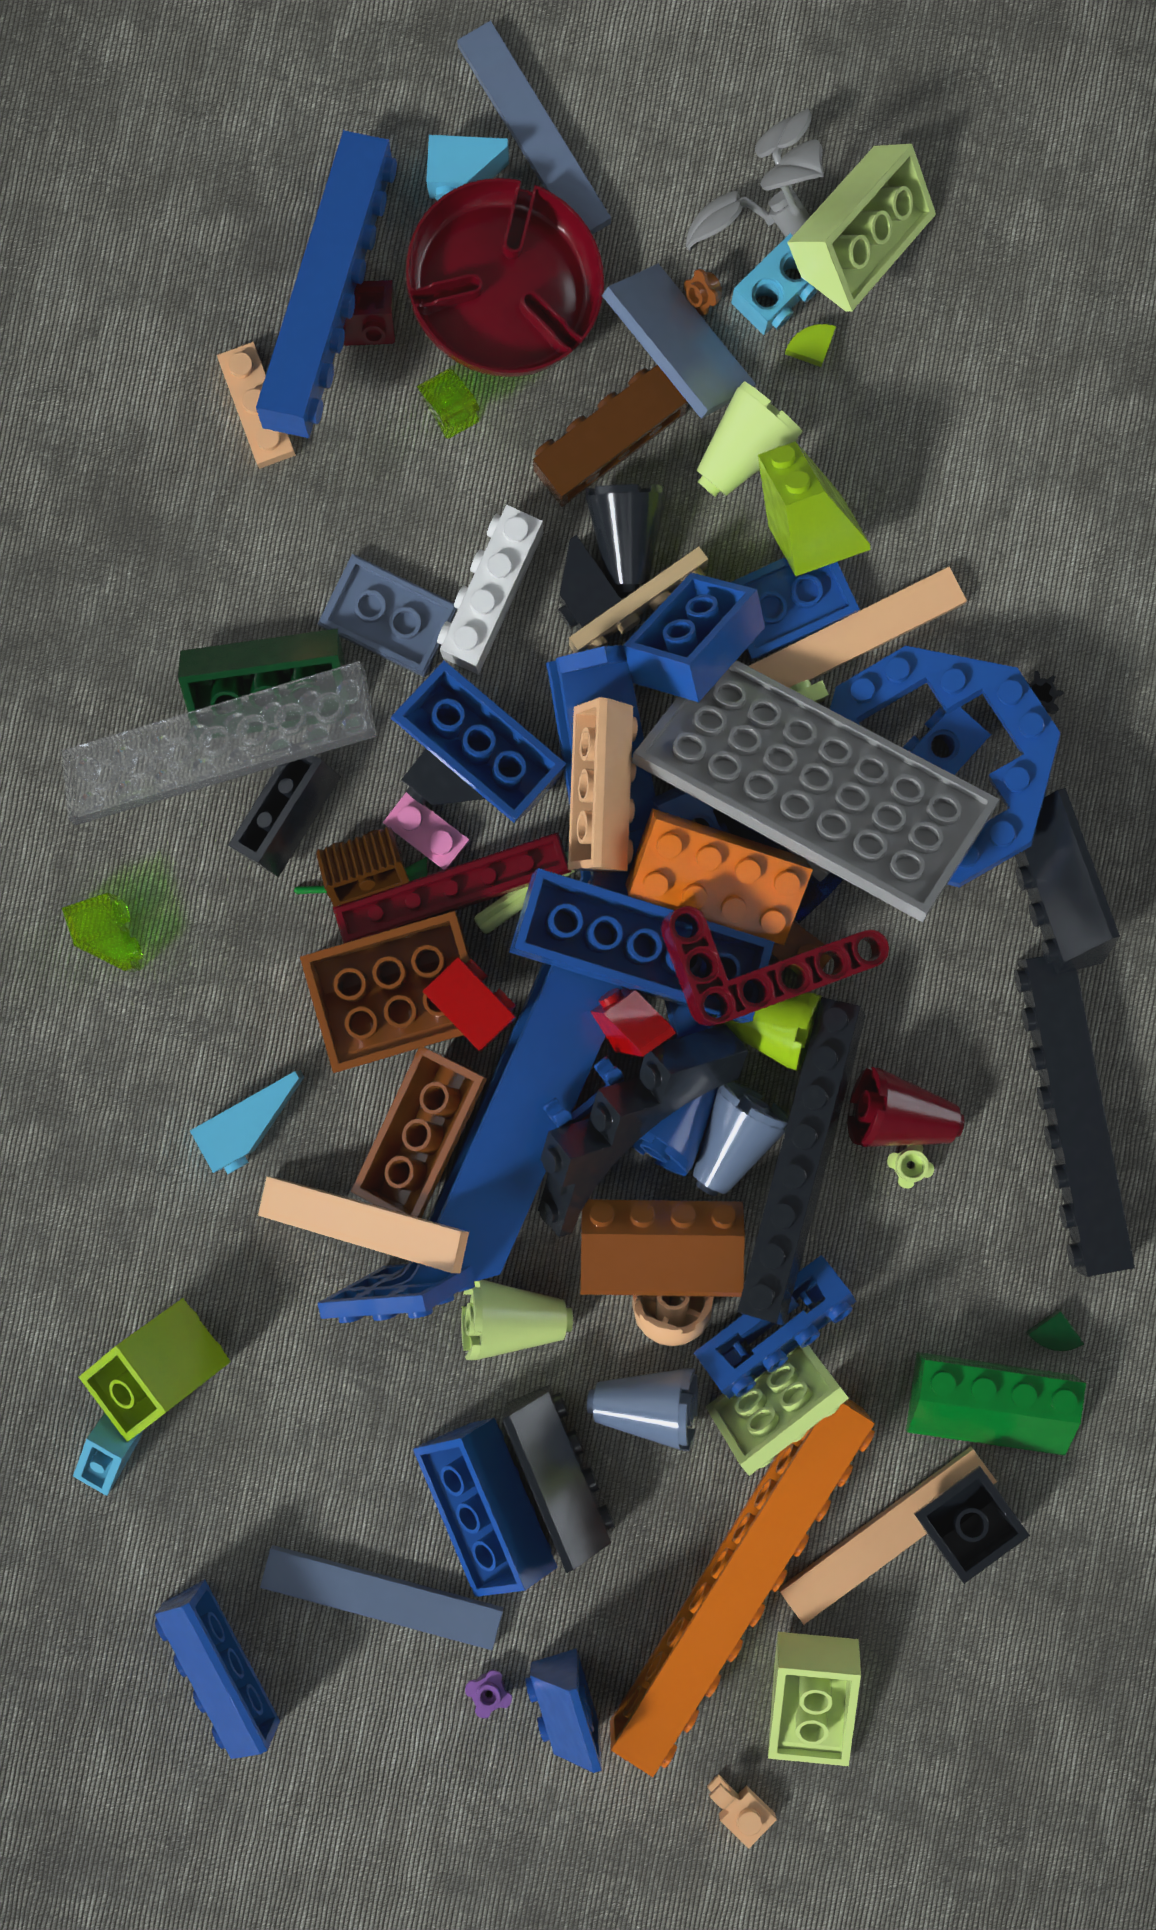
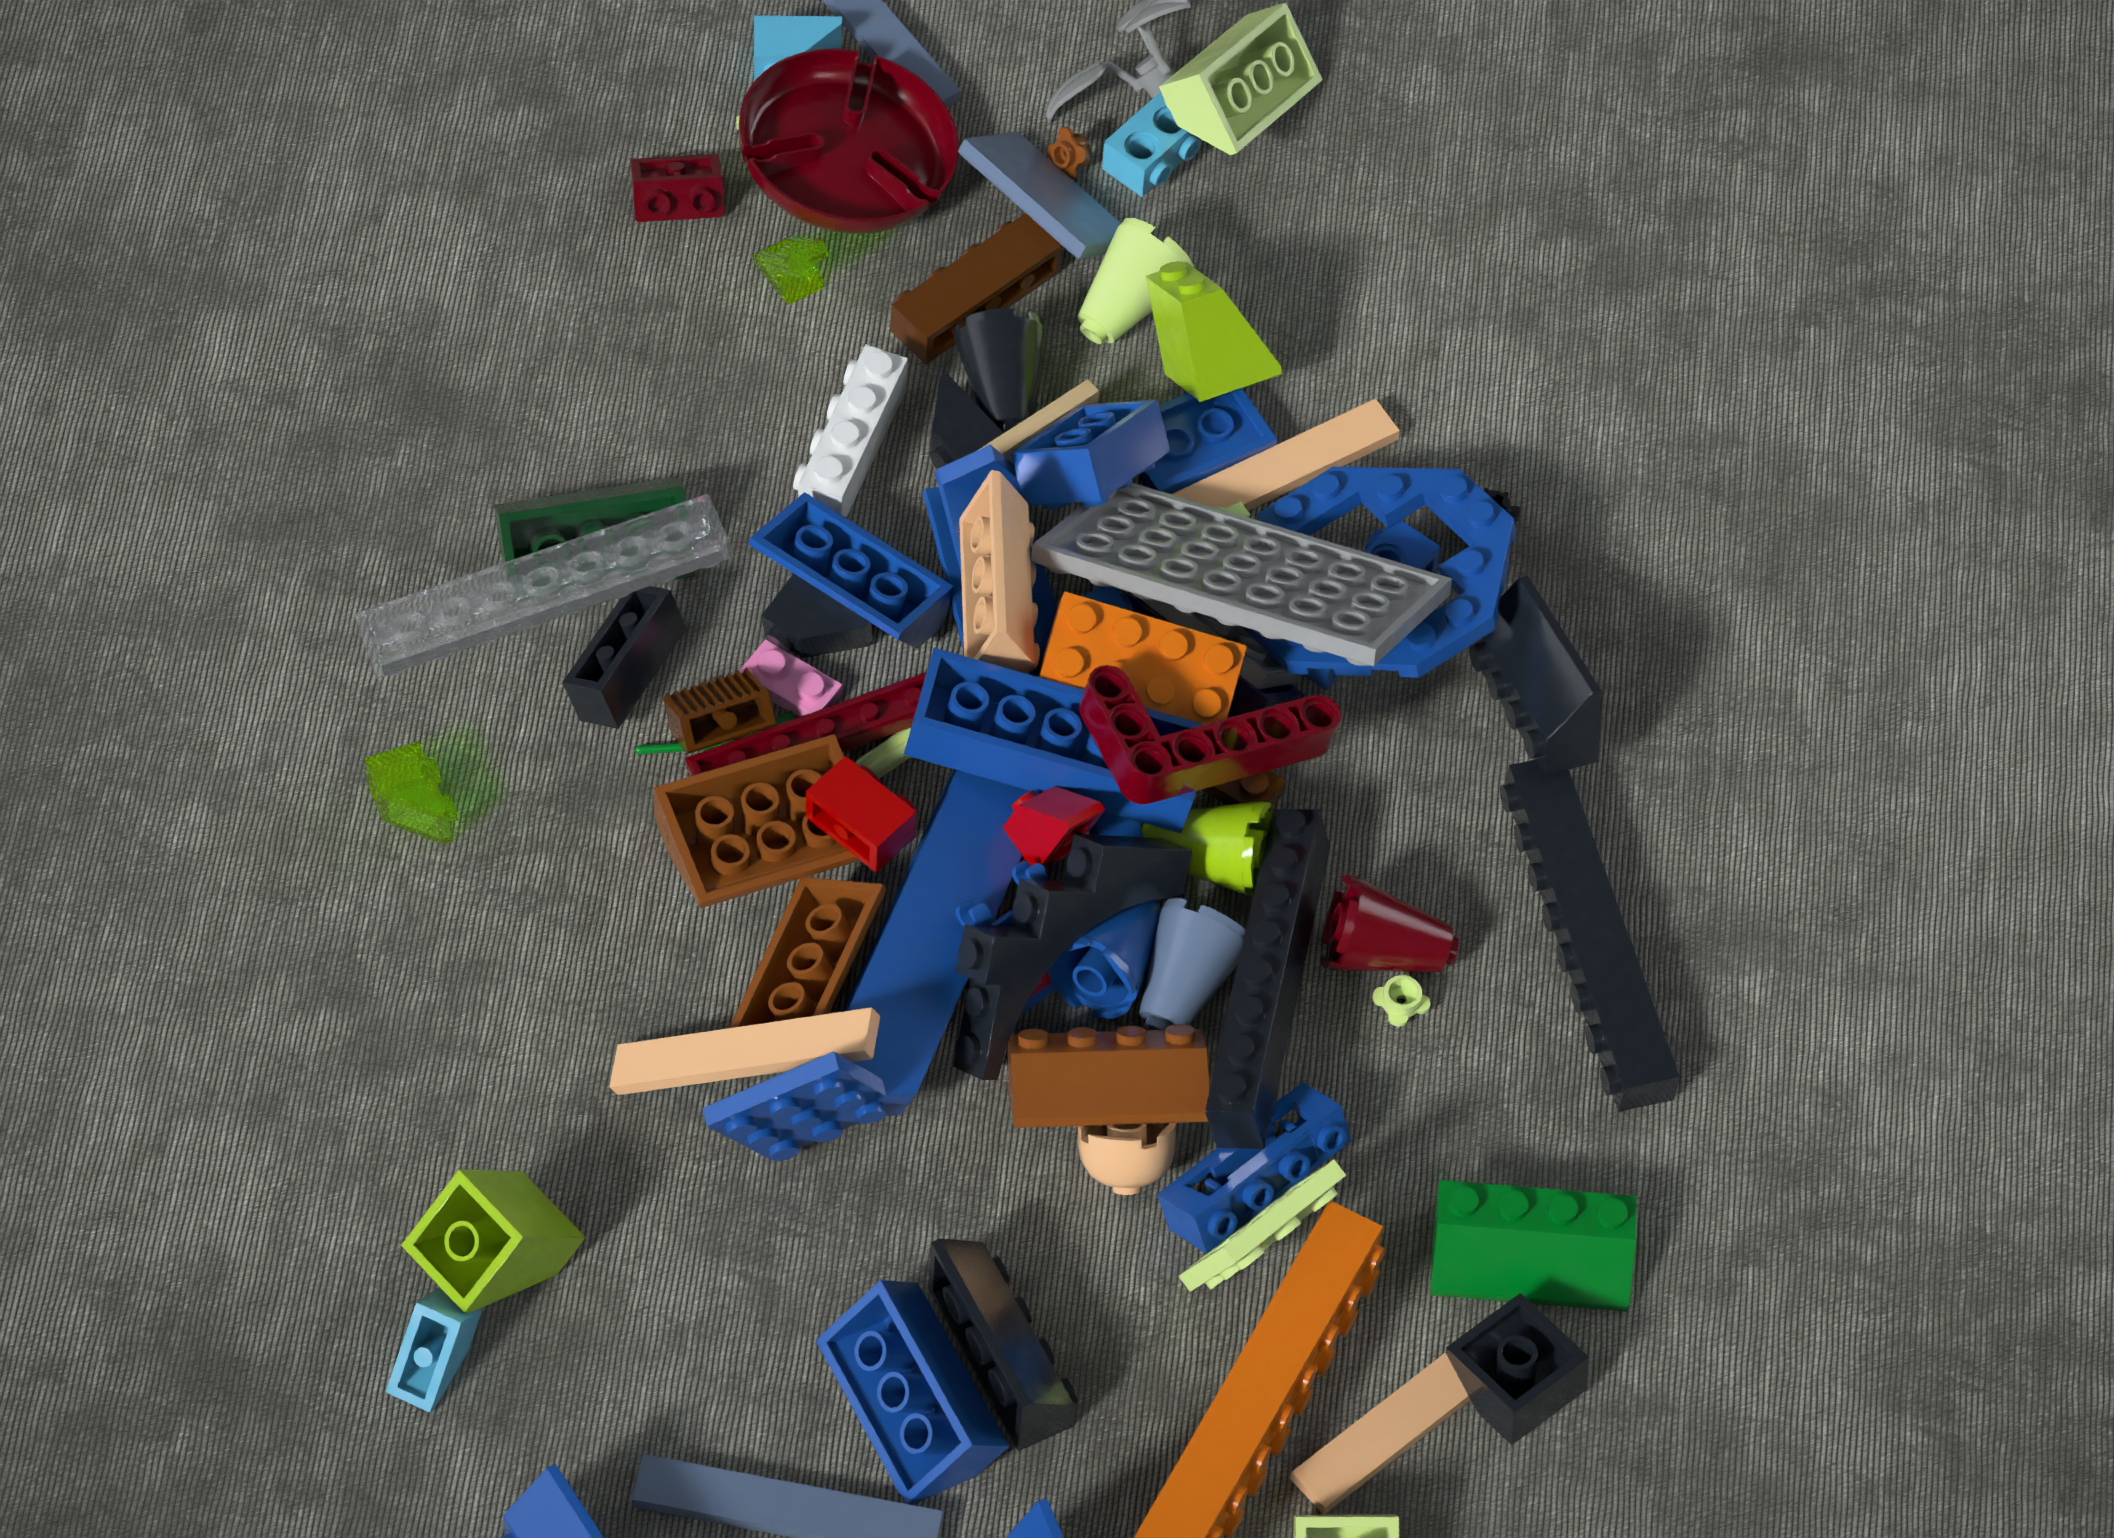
camera: 10 degrees left, 30 degrees down
(242, 1127) = (584, 989): medium azure slope -> none
(245, 380) = (568, 277): light nougat plate -> none
(326, 285) = (650, 149): blue brick -> none
(387, 615) = (739, 471): sand blue tile -> none
(510, 1320) = (928, 1172): yellowish green cone -> none
(649, 1406) = (1108, 1259): sand blue cone -> none
(811, 344) = (1196, 200): lime tile -> none
(1055, 1333) = (1599, 1172): dark green tile -> none

